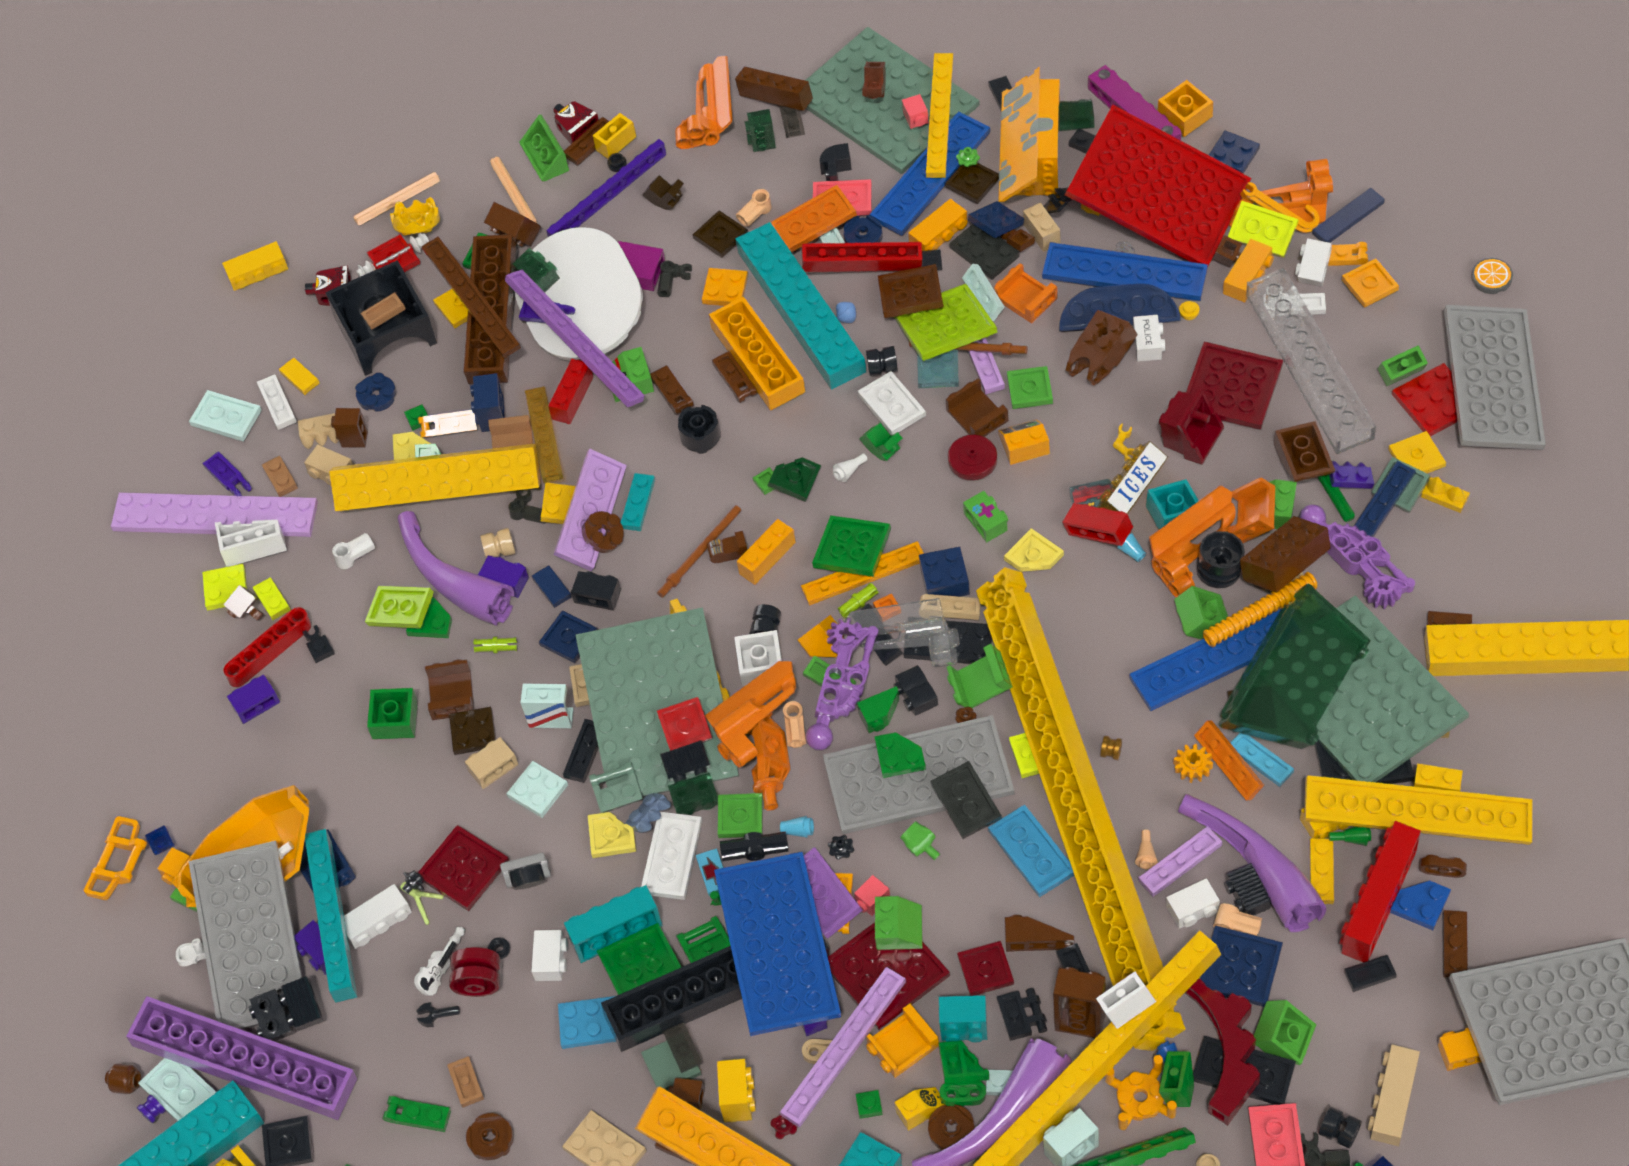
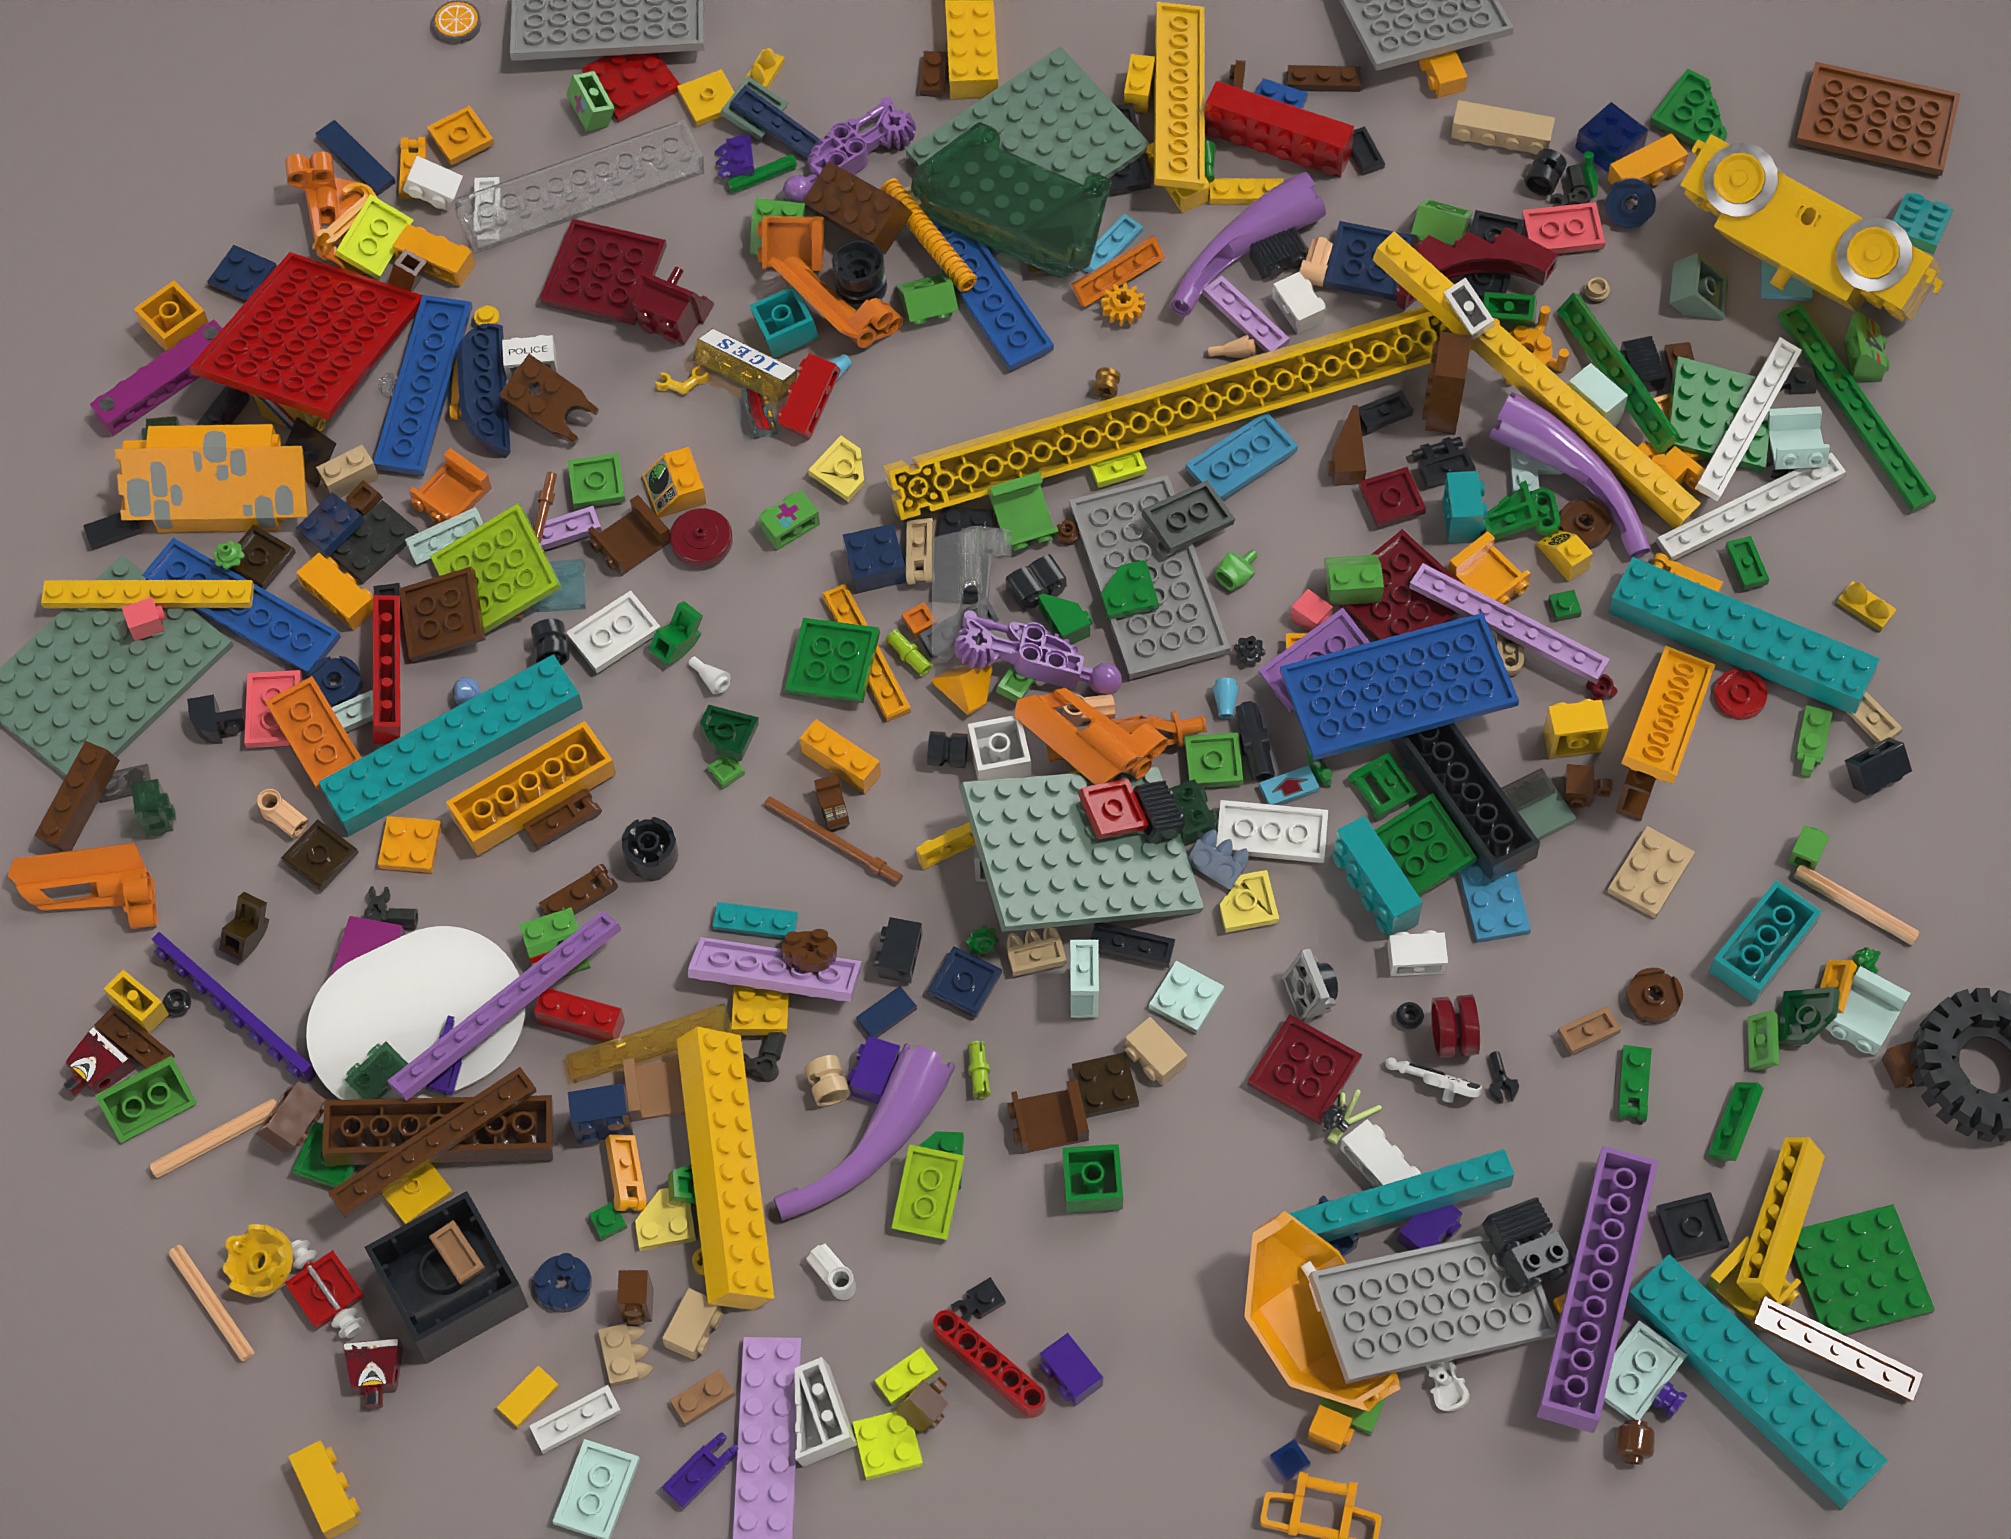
camera: 100 degrees left, 5 degrees up
(619, 794) = (1197, 889): sand green plate -> none
(874, 80) = (85, 669): copper brick -> none
(1303, 451) = (714, 193): reddish brown slope -> none

